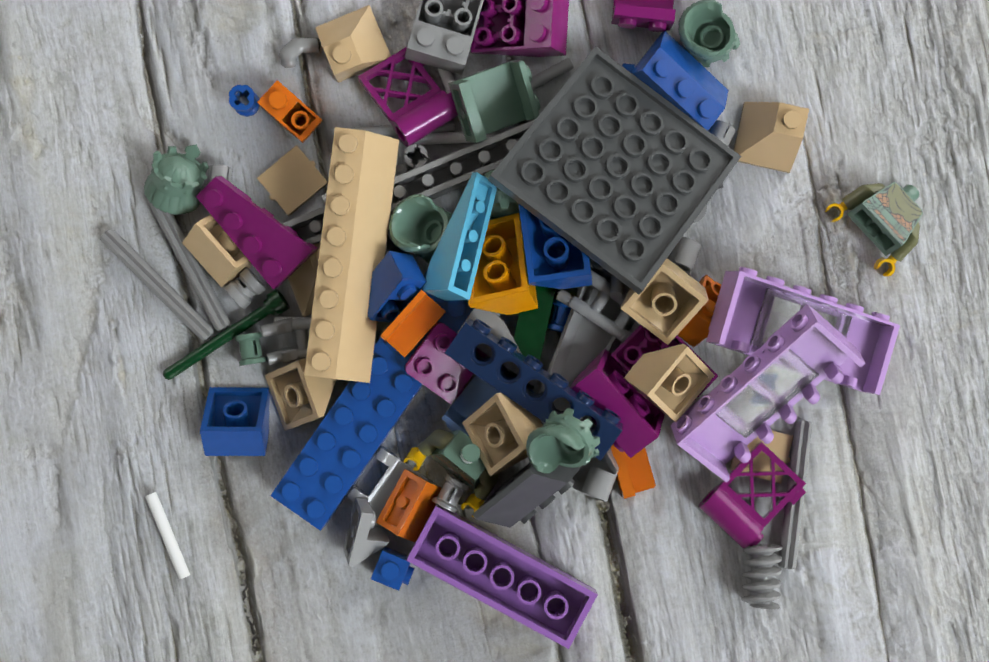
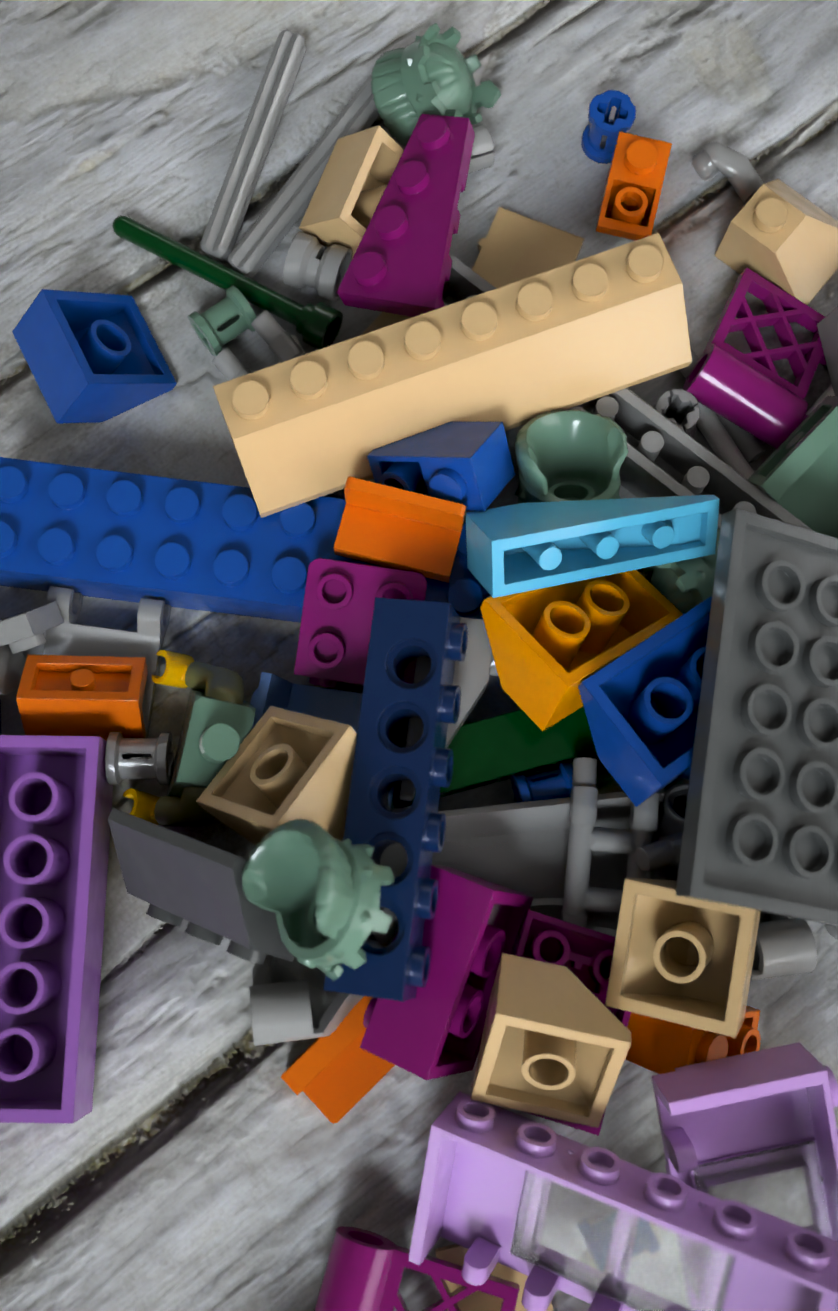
camera: 55 degrees right, 10 degrees down
(297, 396) = (185, 430): tan slope -> none

